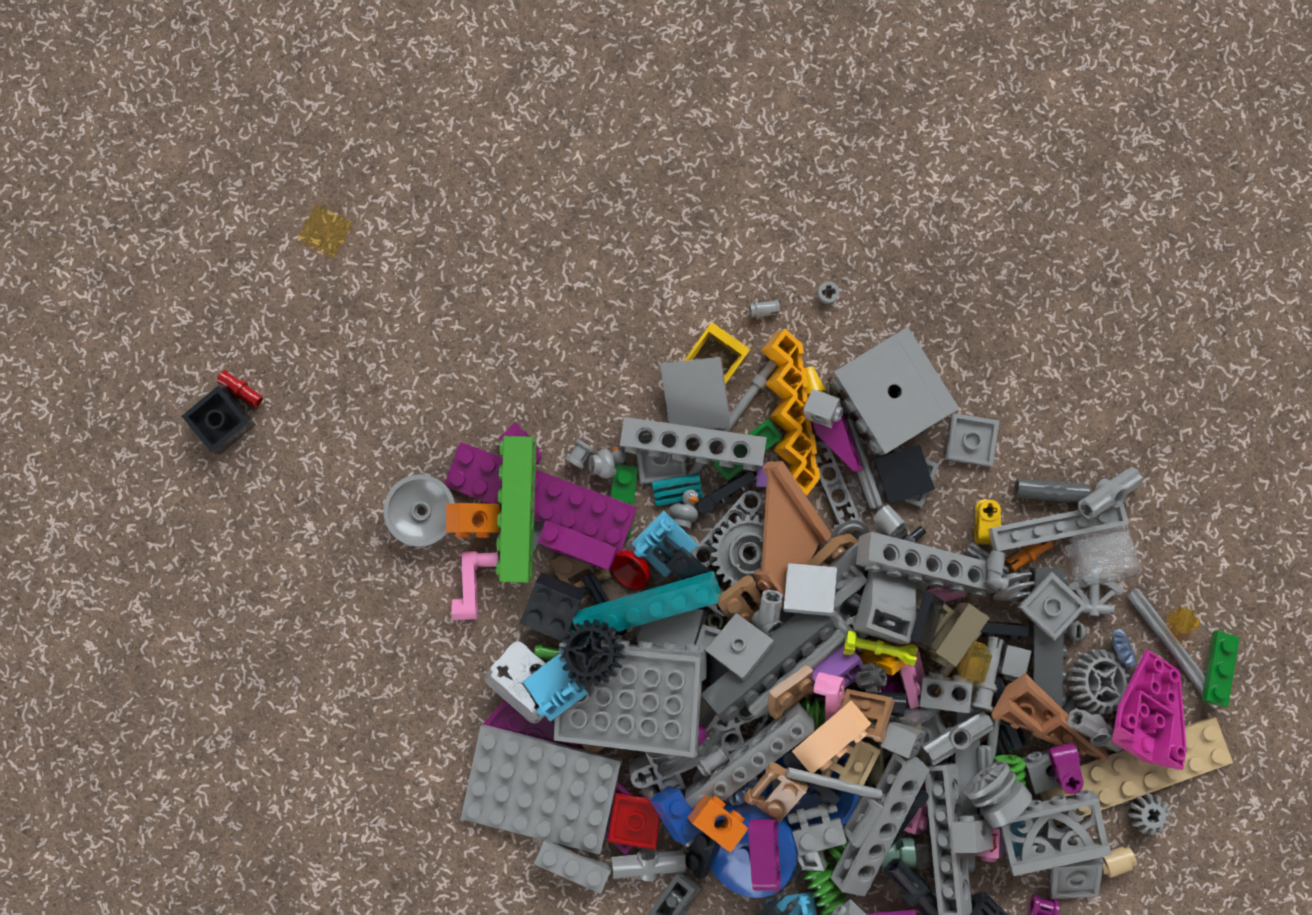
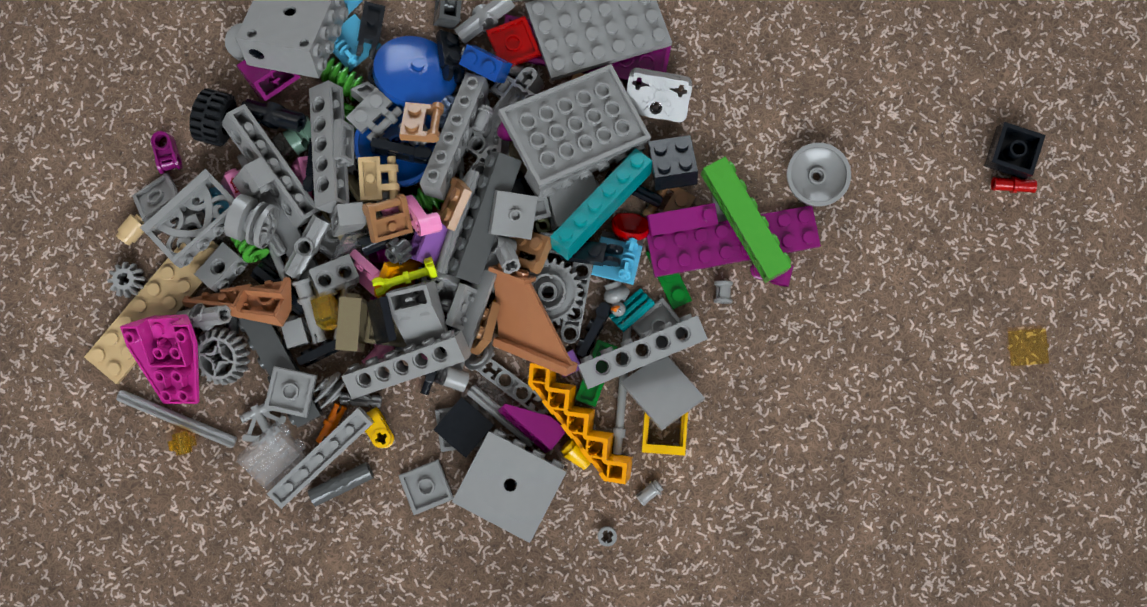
camera: 150 degrees right, 0 degrees up
(460, 517) = (785, 188): orange brick -> none
(467, 607) = (736, 126): bright pink beam -> none
(546, 652) = (656, 127): bright green pin -> none
(554, 689) = (634, 101): medium azure hinge -> none
(592, 643) = (619, 133): black gear -> none
(604, 462) = (701, 297): light grey animal -> none
(726, 834) = (440, 69): orange brick -> none
(764, 855) = (402, 71): magenta beam -> none
(810, 589) = (485, 290): tile -> none
(823, 408) = (557, 437): light grey brick -> none
(832, 738) = (402, 185): light nougat brick -> none
(833, 783) = (355, 162): light grey piece -> none
(995, 567) = (351, 392): light grey arm -> none
(1066, 767) = (210, 273): magenta piece -> none
(1072, 631) = (264, 384): light grey hinge -> none
(1110, 493) = (294, 508): light grey piece -> none
(1123, 648) = (216, 393): sand blue gear -> none
(1220, 669) = (132, 423): green plate -> none

